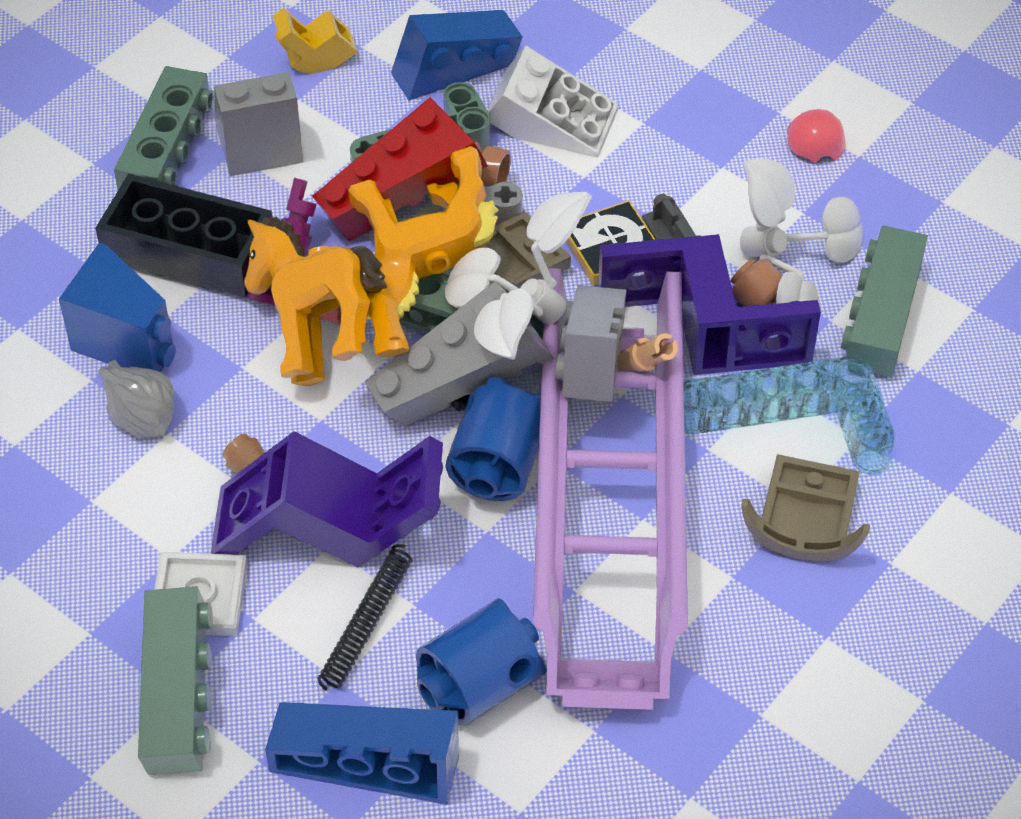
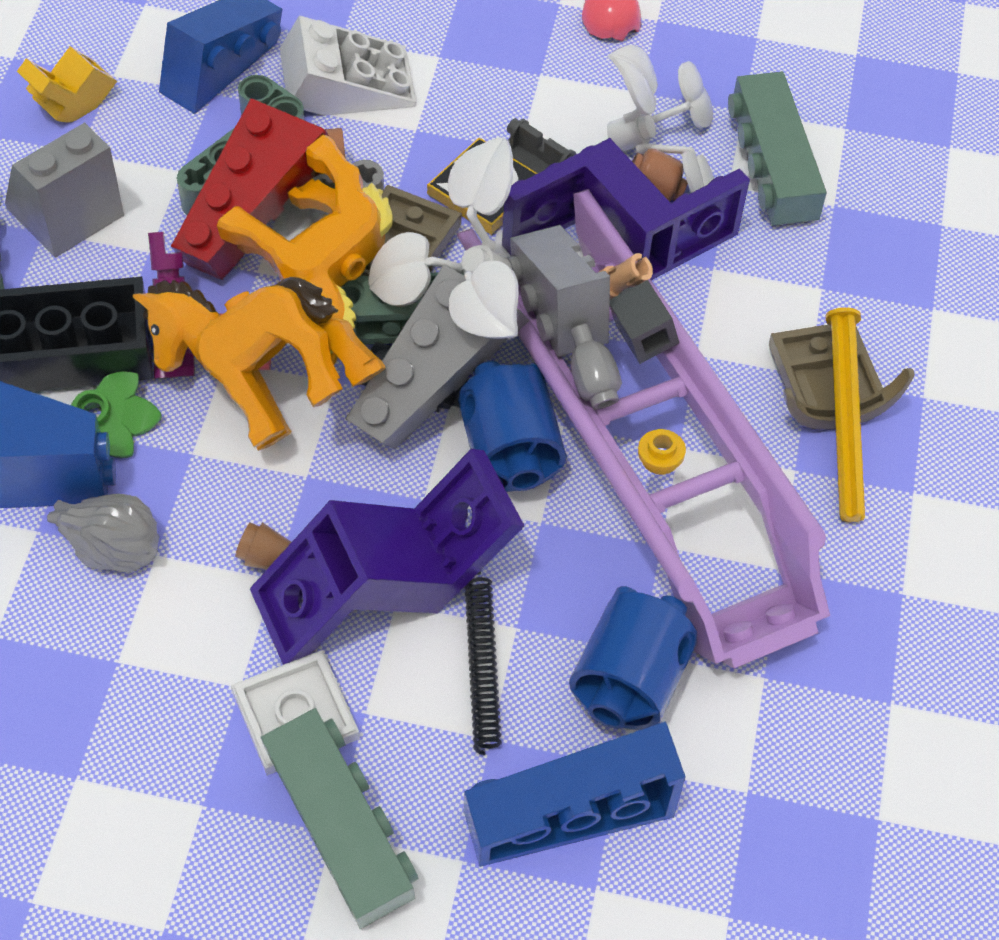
camera: 30 degrees left, 5 degrees up
(202, 316) = (121, 411): none -> bright green plate
(577, 416) = (594, 370): none -> light grey plant
(593, 503) = (658, 460): none -> yellow plate
(645, 393) = (643, 321): none -> dark grey brick
(797, 392) = (780, 247): clear light blue beam -> none
(799, 544) = (847, 413): none -> yellow axle

